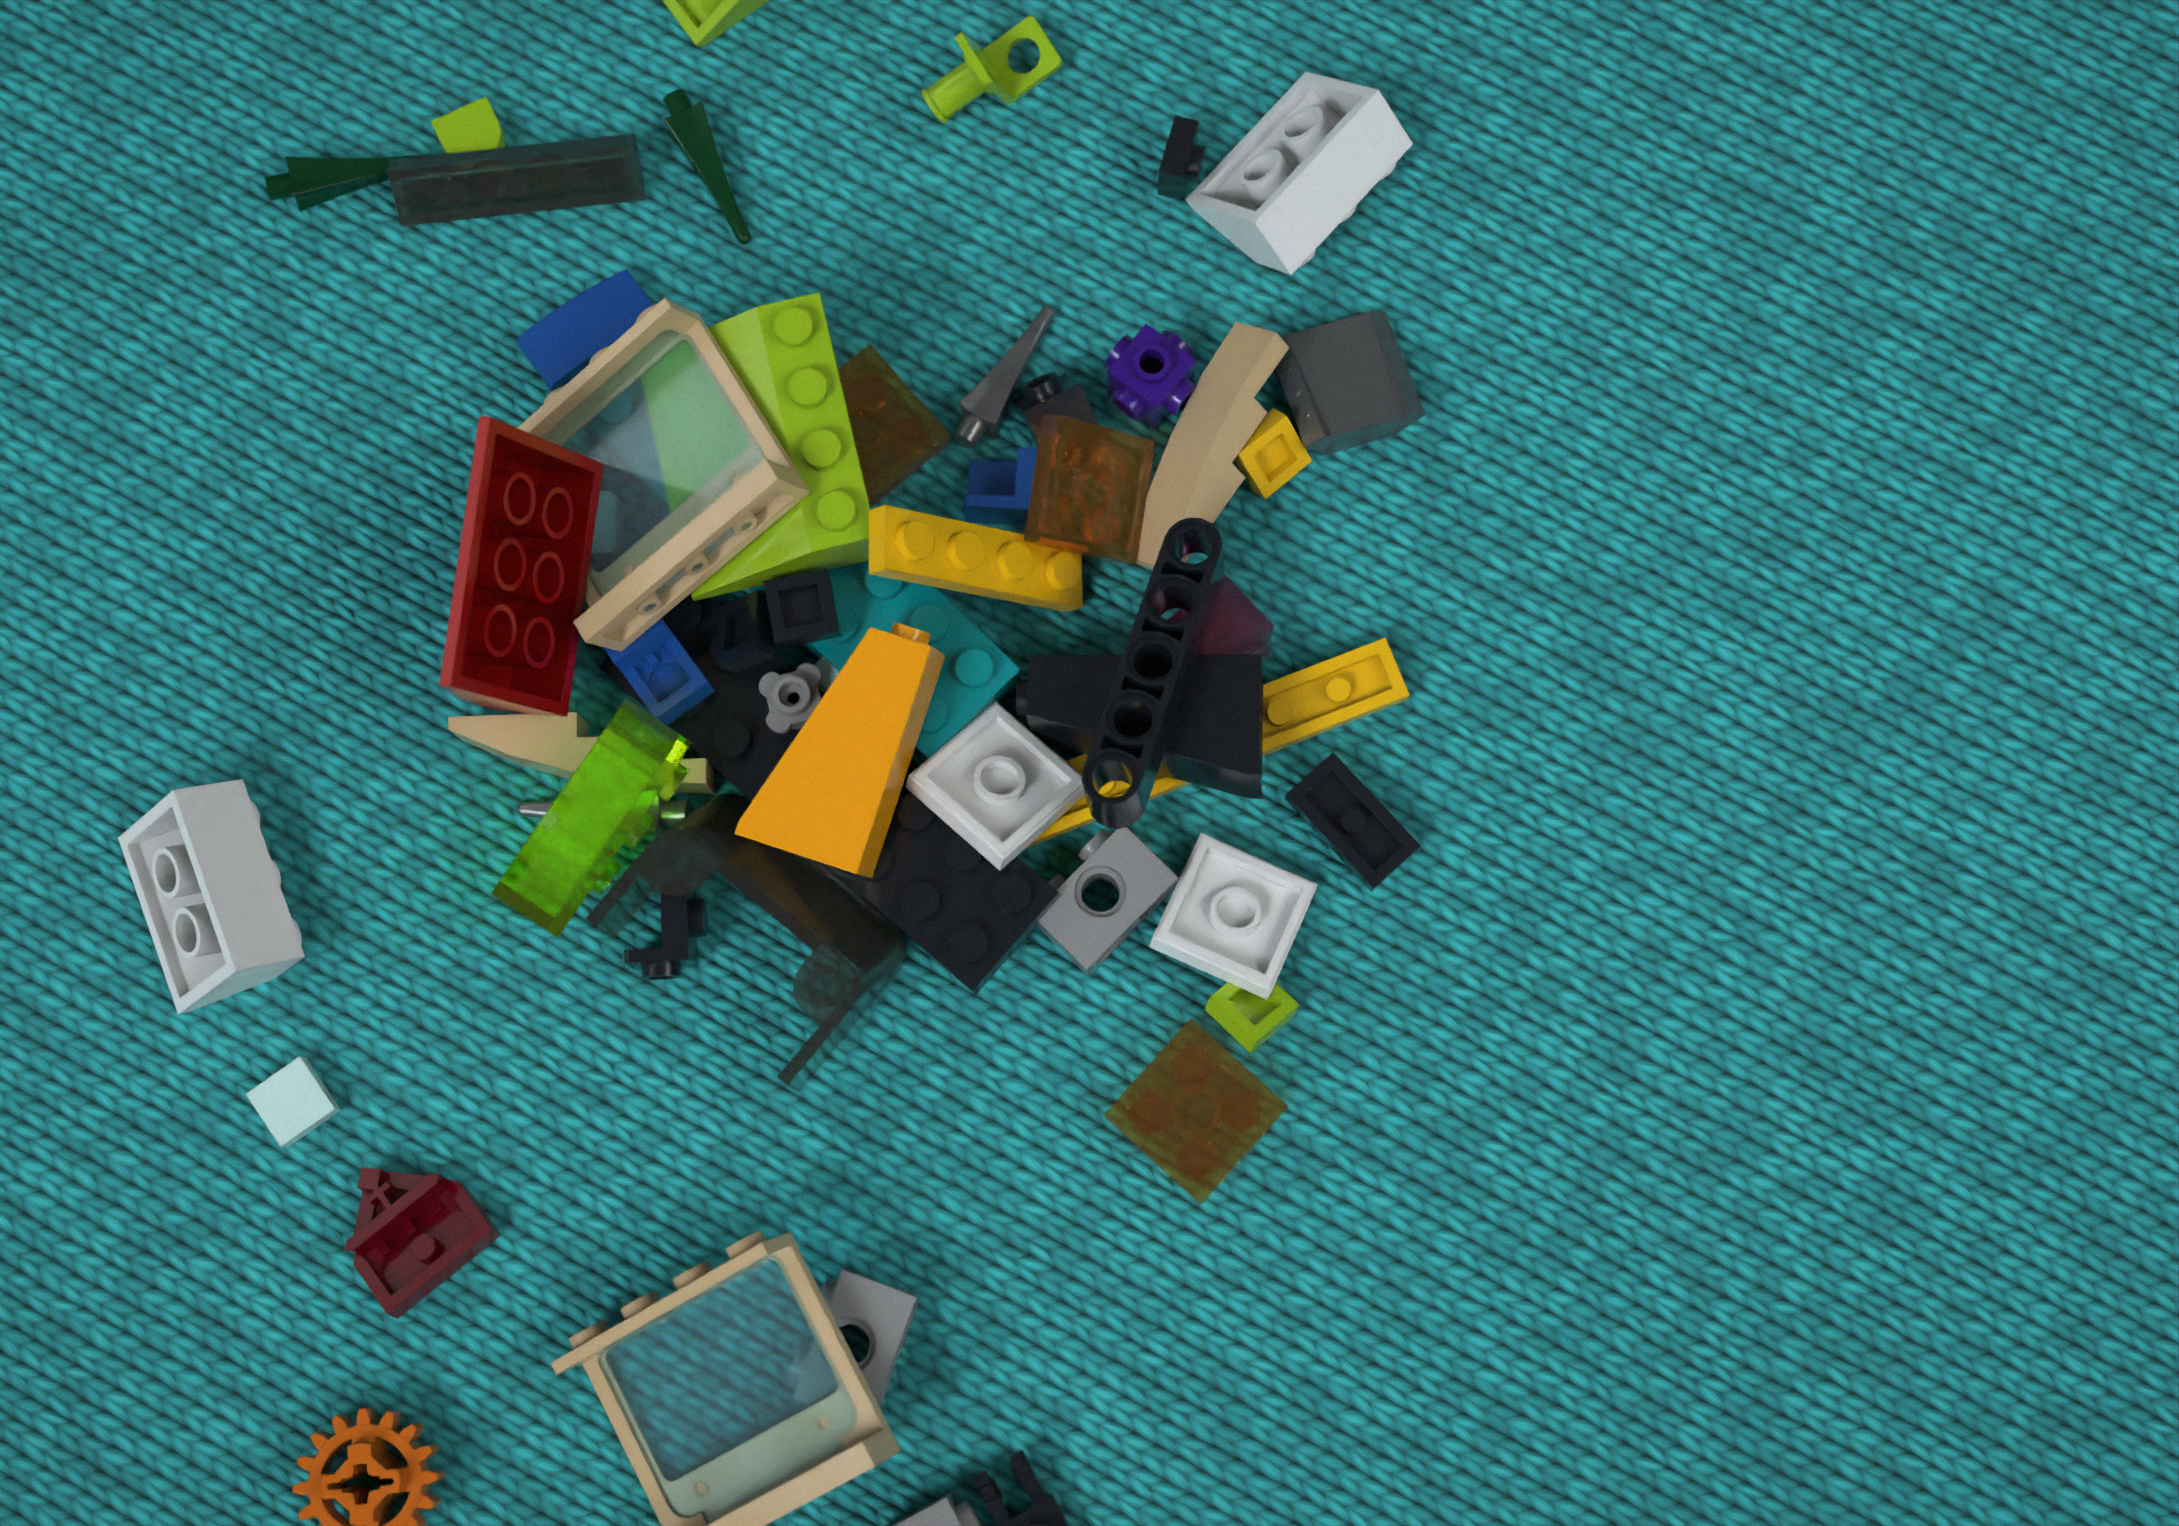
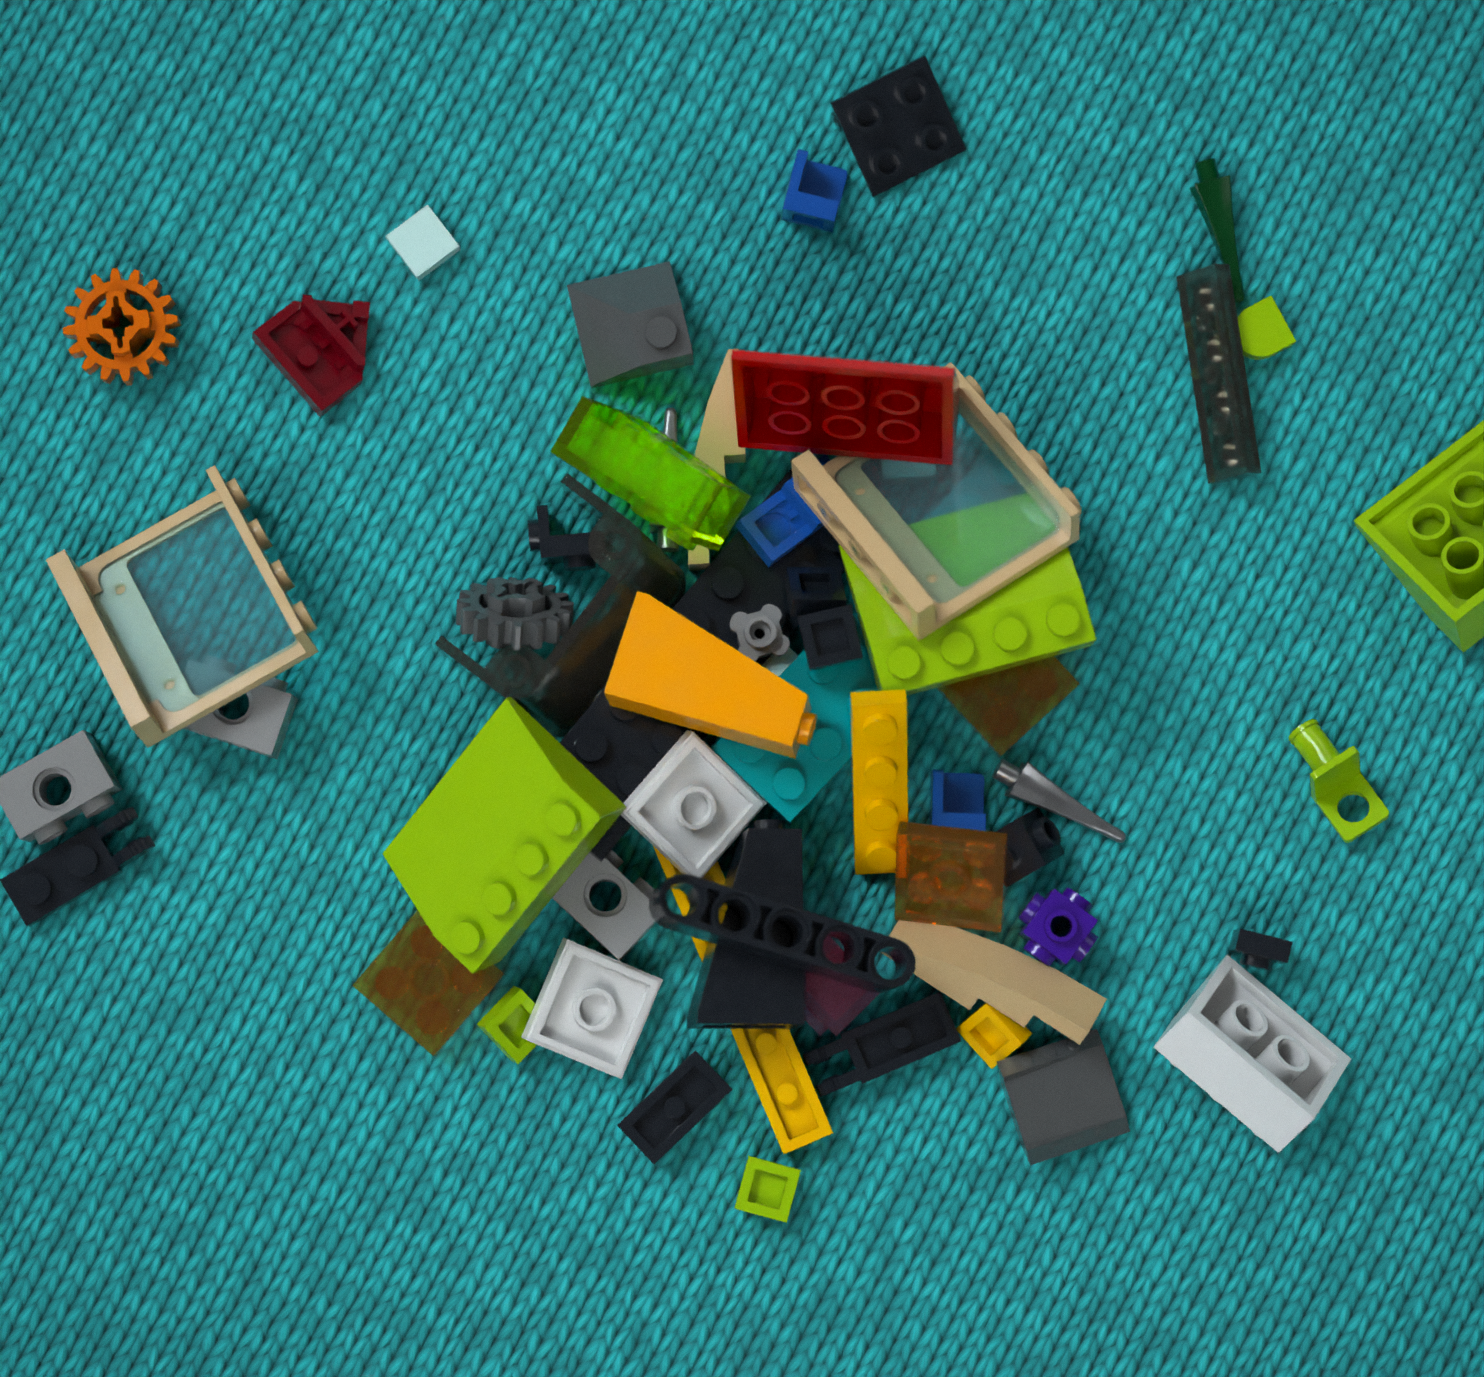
camera: 85 degrees right, 5 degrees up
(195, 531) = (898, 126): none -> black hinge
(210, 894) = (589, 163): white slope -> none
(271, 632) = (814, 193): none -> blue panel
(413, 849) = (631, 324): none -> dark grey slope
(572, 333) = (1087, 443): blue slope -> none
(693, 136) = (1265, 524): dark green piece -> none
(755, 992) = (514, 613): none -> dark grey gear
(1024, 1015) = (499, 836): none -> lime slope
(1280, 574) = (889, 1042): none -> black hinge
(1449, 717) = (767, 1189): none -> lime plate

